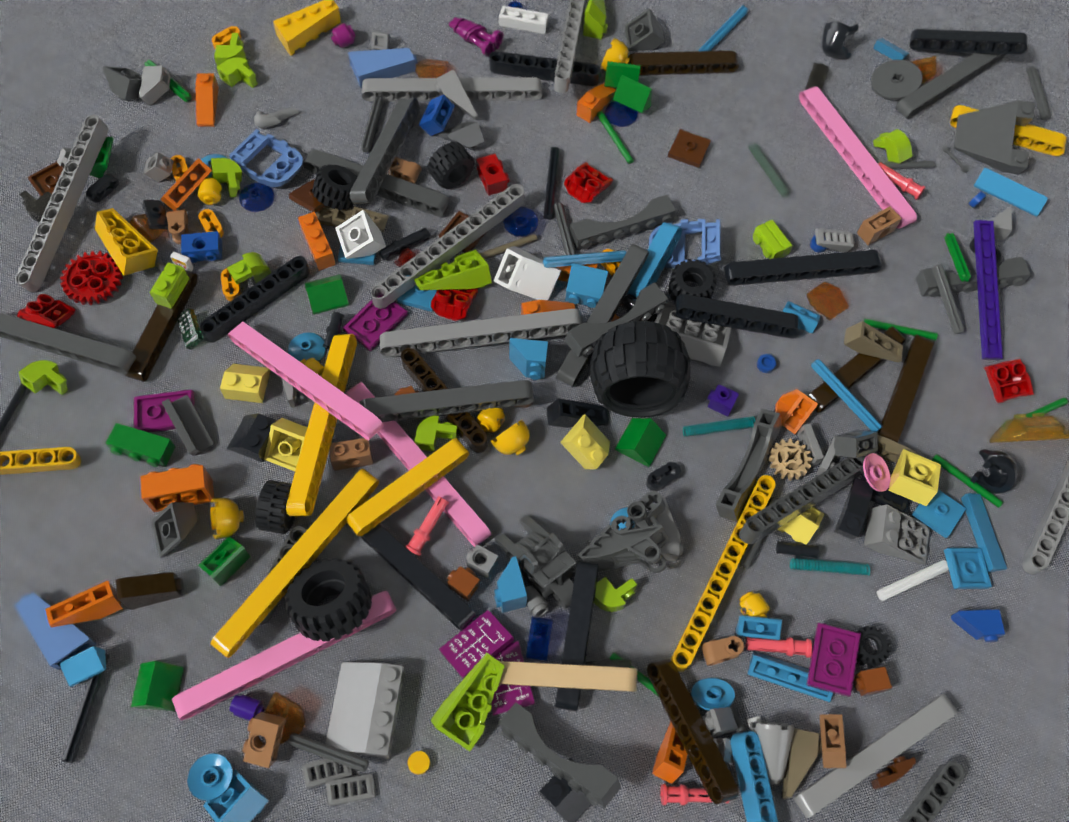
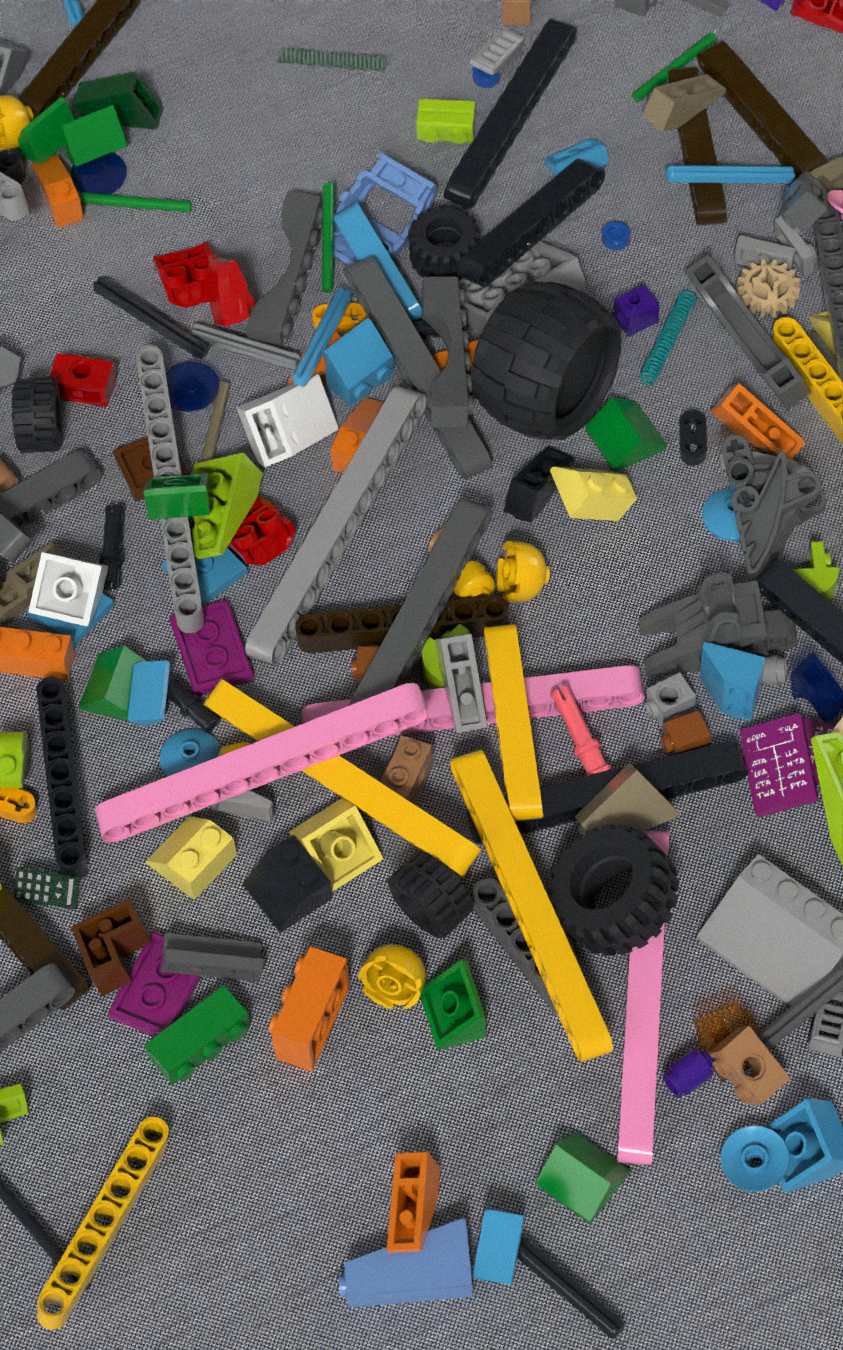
camera: 50 degrees left, 5 degrees down
(148, 589) = (439, 1115): dark brown slope -> none
(165, 371) = (106, 939): none -> reddish brown brick
(173, 525) = (363, 1048): dark grey slope -> none
(326, 306) = (148, 692): none -> dark azure slope
(391, 577) = (626, 801): none -> dark tan slope
(404, 257) = (140, 560): clear red slope -> none
(416, 445) = (461, 682): none -> light grey slope
(438, 247) = (177, 496): none -> green slope
(529, 357) = (419, 486): dark azure slope -> none
(581, 203) = (227, 292): none -> red slope
(654, 230) = (328, 237): none -> green bar
(665, 95) = (127, 93): none -> dark green slope
(689, 148) = (224, 127): reddish brown plate -> none
(694, 506) = (756, 423): none -> orange slope
(795, 409) = (705, 236): orange slope -> none
(827, 300) = (575, 115): clear orange slope -> none

